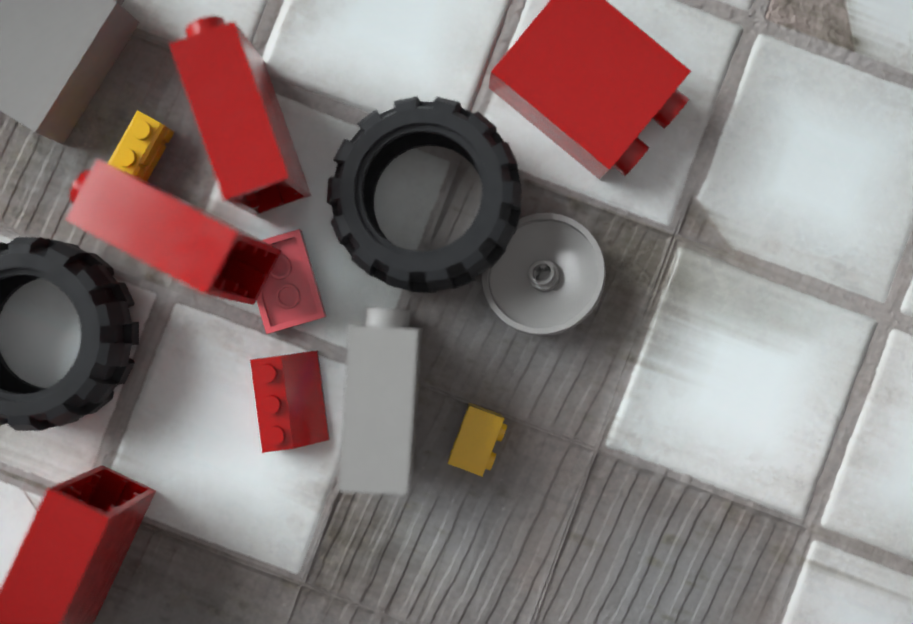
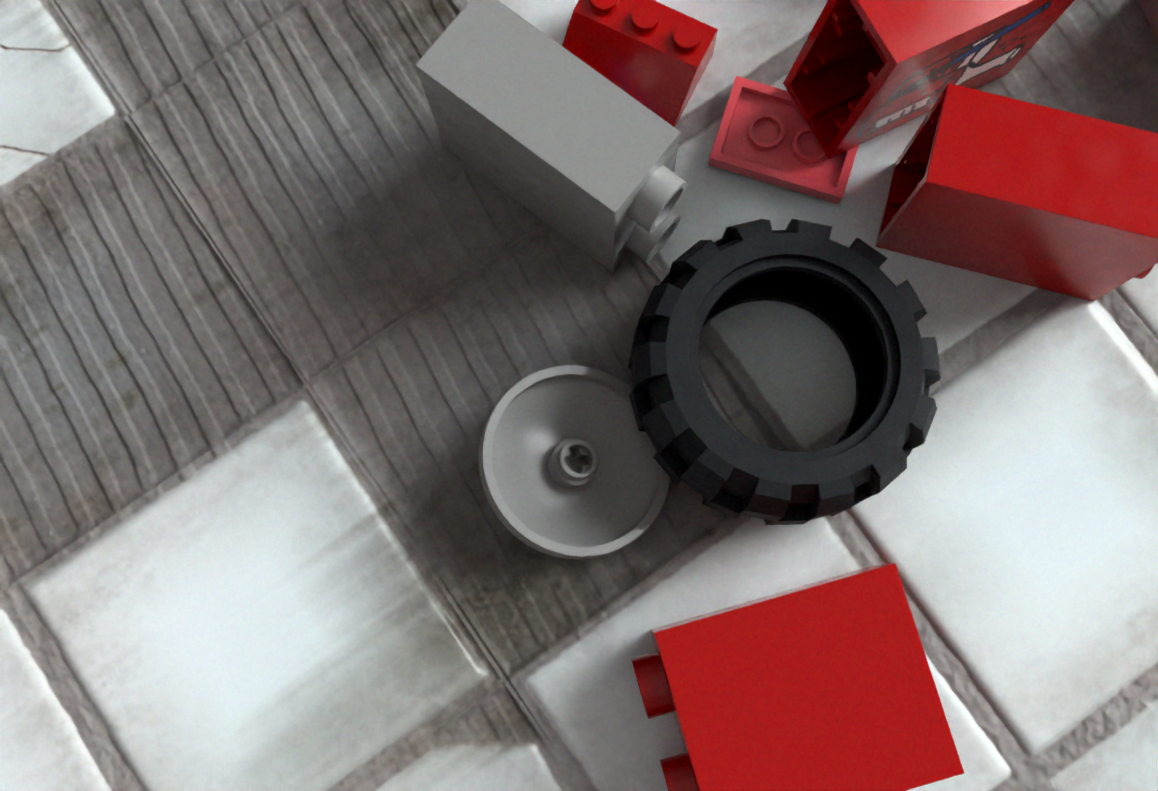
camera: 130 degrees right, 10 degrees down
(141, 146) = (1073, 71): yellow brick -> none
(477, 439) = (427, 239): yellow brick -> none

